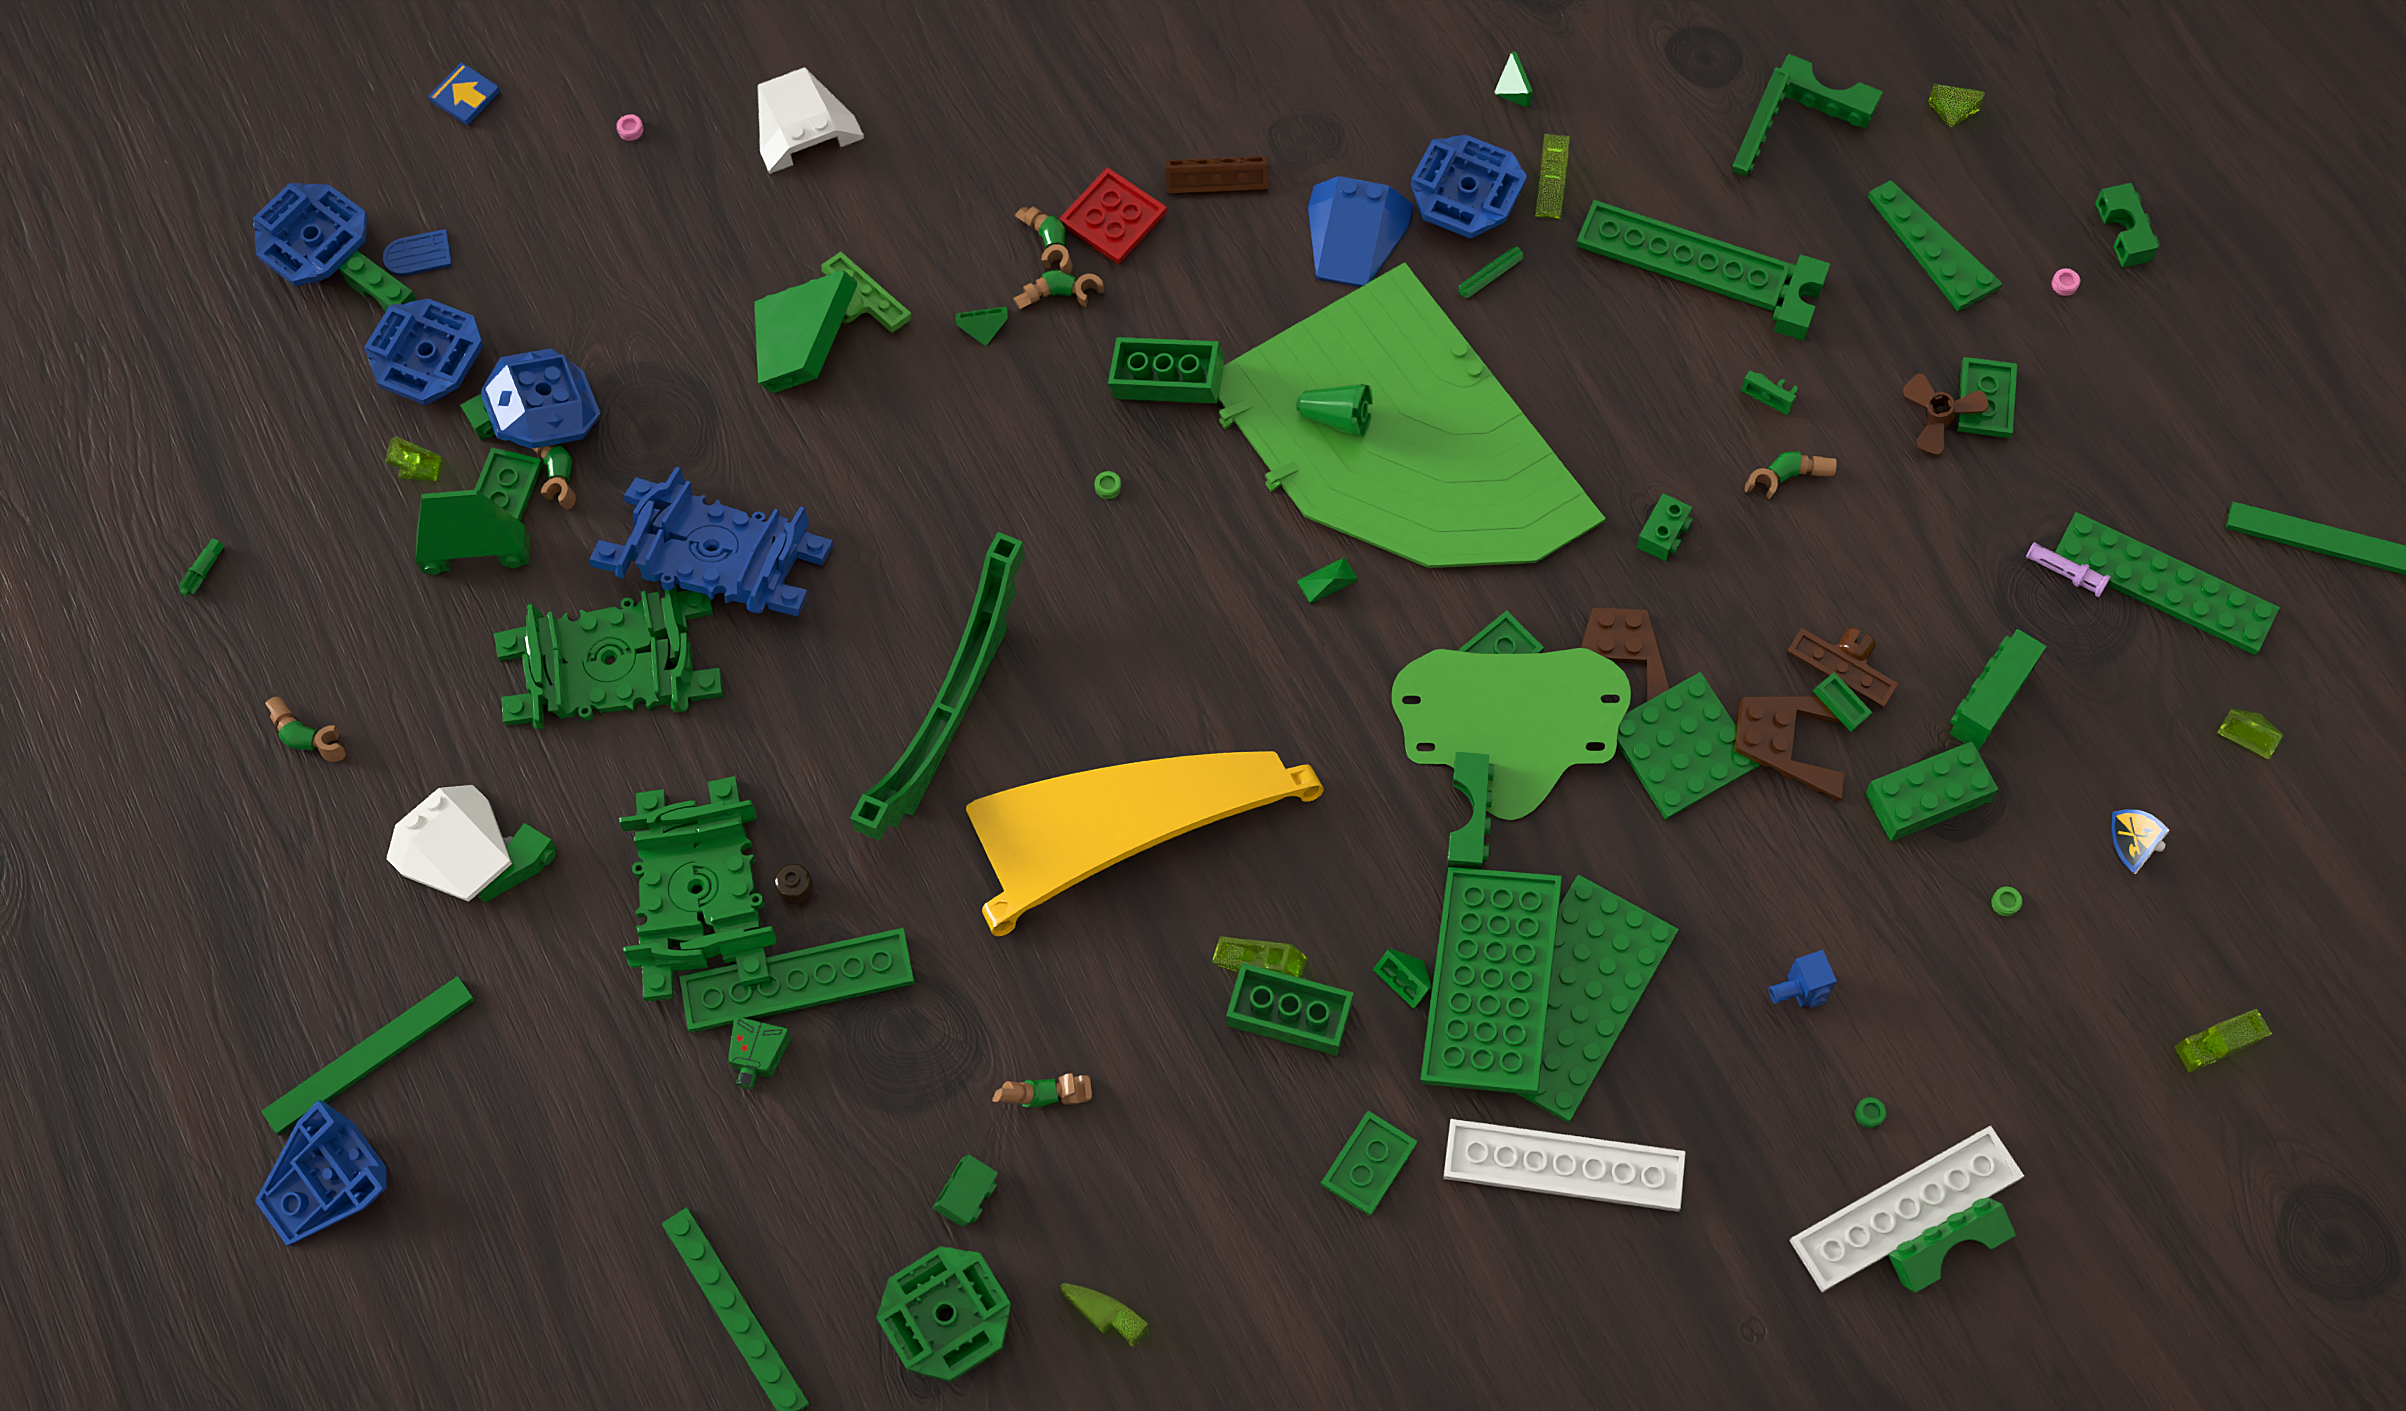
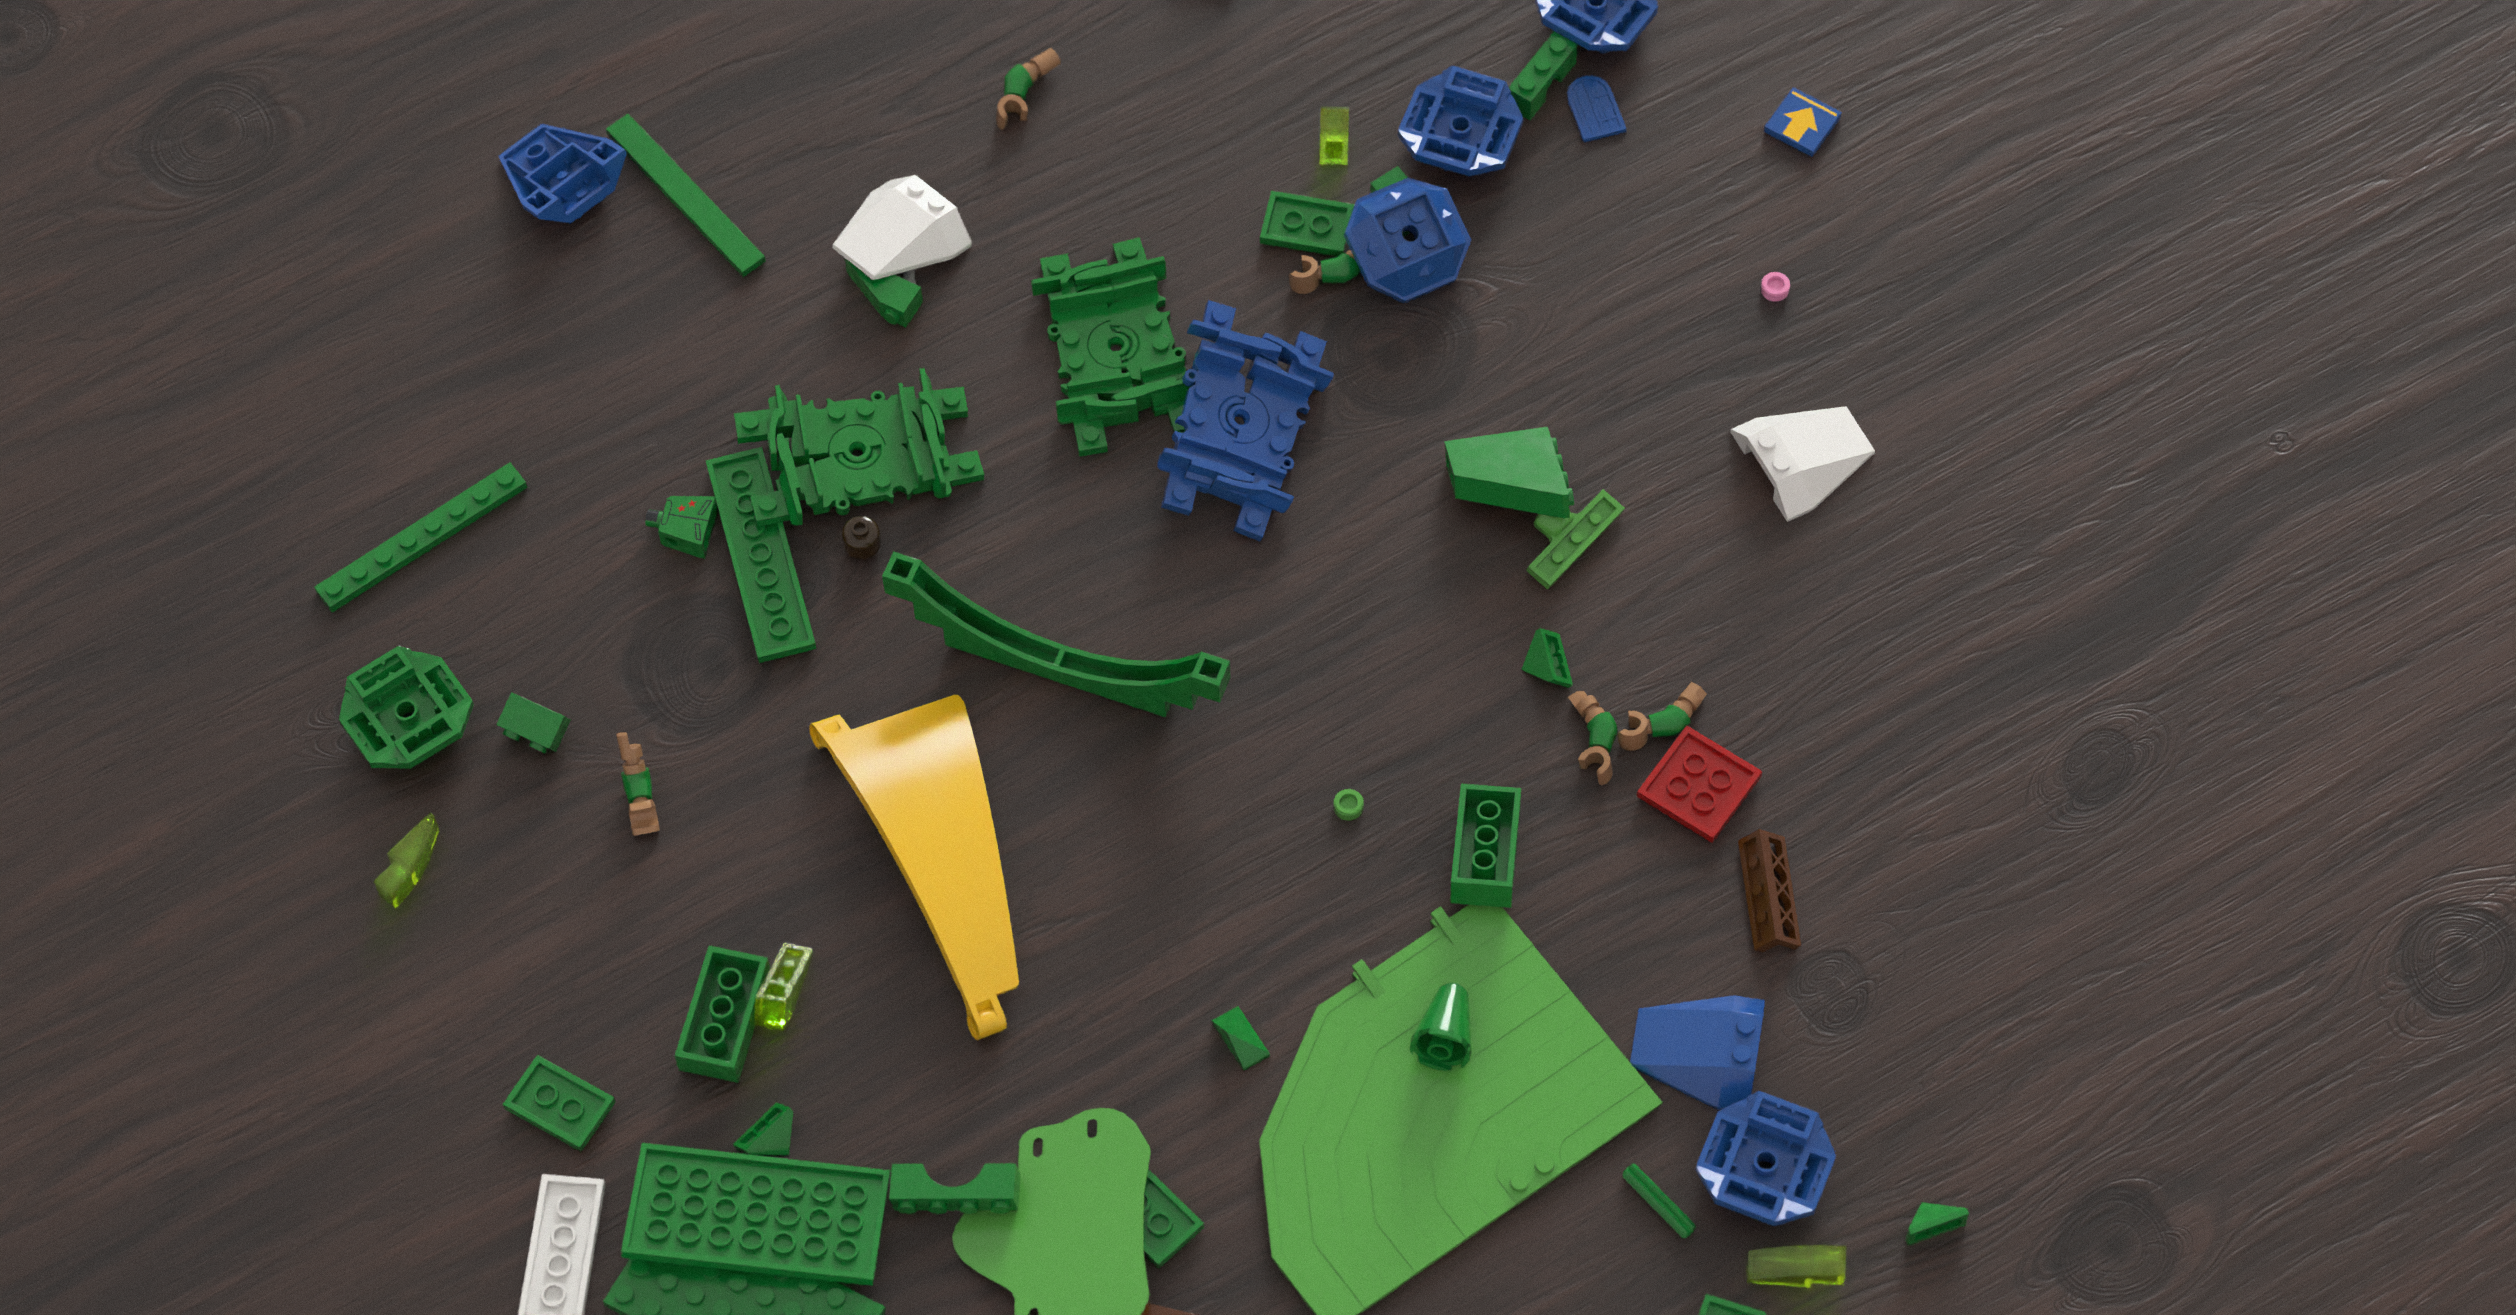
camera: 85 degrees right, 5 degrees down
(467, 526) = (1235, 186): green wedge -> none

